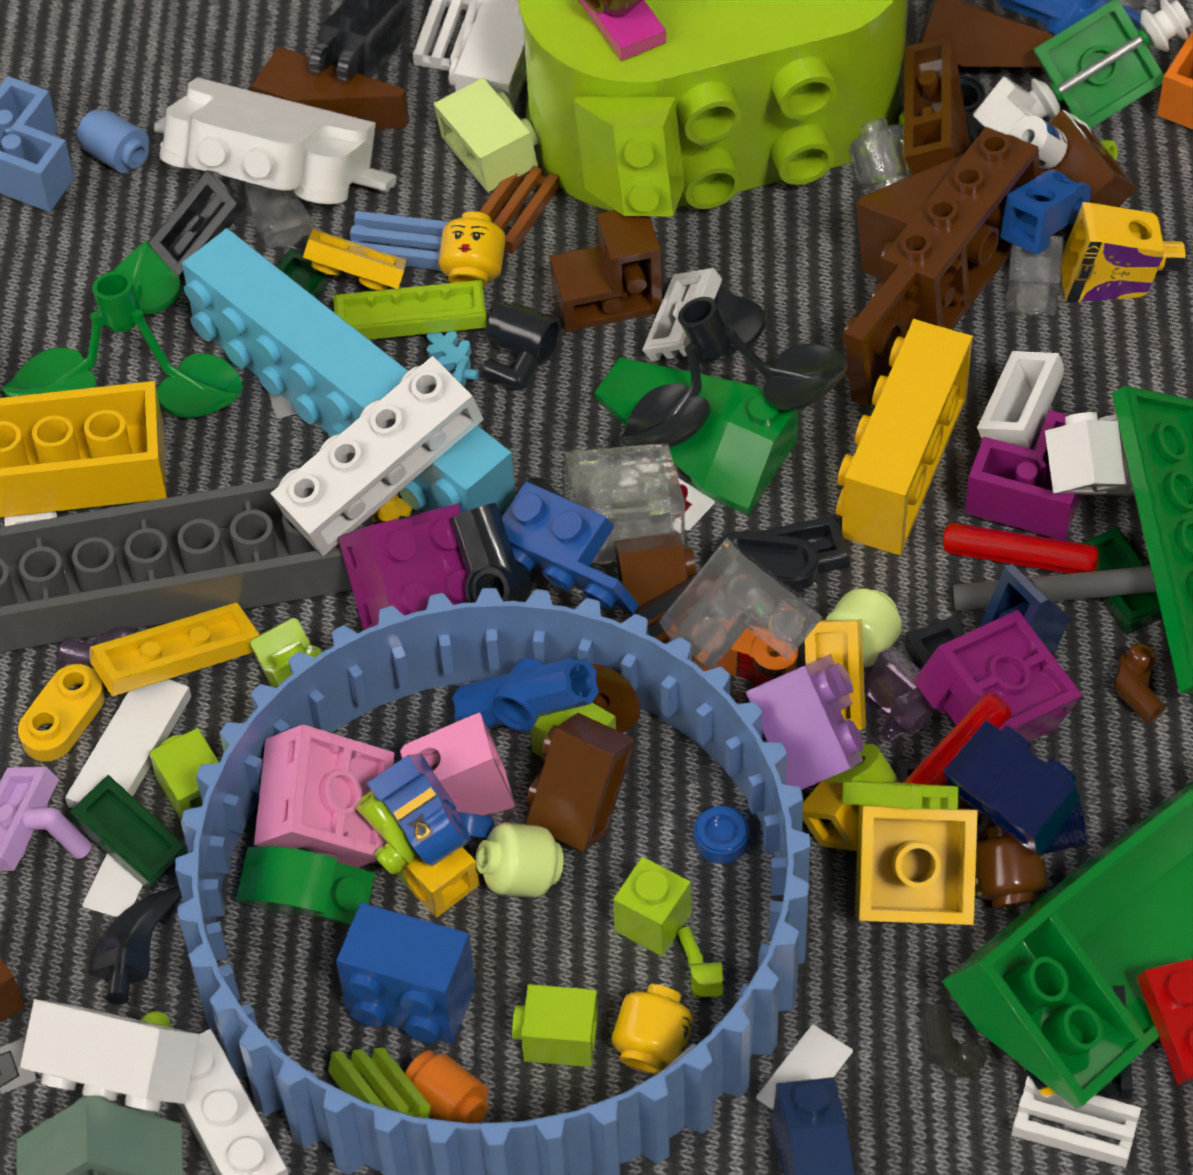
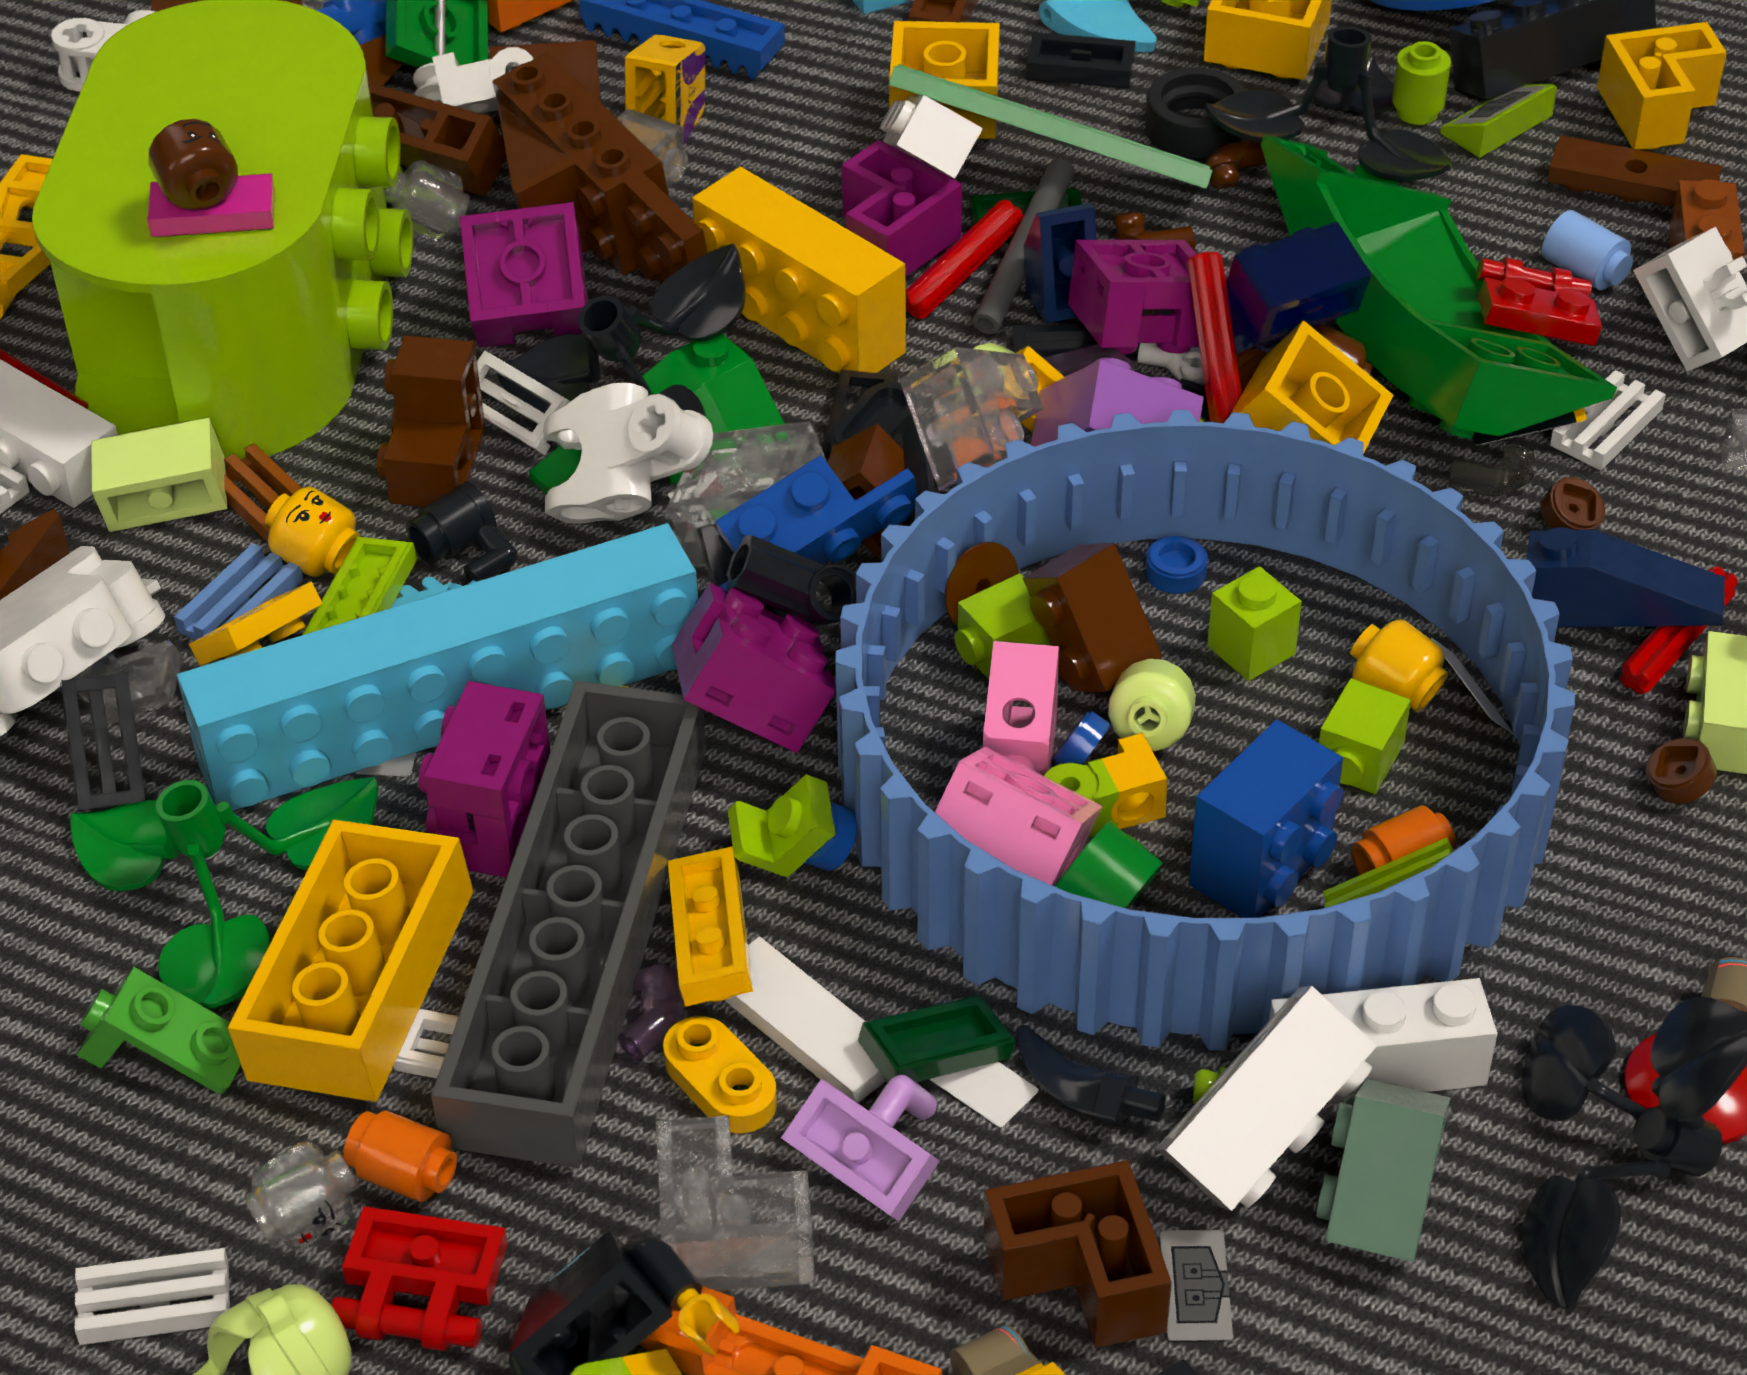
camera: 70 degrees left, 10 degrees down
(176, 768) = (890, 962): lime brick -> none
(242, 443) = (486, 773): none -> magenta piece
(377, 455) = (615, 618): white brick -> none
(398, 848) = (1088, 777): lime arm -> none
(421, 808) = (1080, 729): blue leg -> none
(528, 693) = (966, 621): blue piece -> none
(617, 399) = (624, 447): none -> white piece
(631, 153) = (359, 299): lime slope -> none
(705, 977) = (1342, 624): lime hand -> none
(806, 256) = (523, 272): none -> magenta piece
(900, 795) = (1254, 369): lime tile -> none
(928, 1118) = (1572, 505): none -> reddish brown tile
(1022, 398) = (809, 180): white brick -> none
(1042, 209) = (612, 89): blue leg -> none

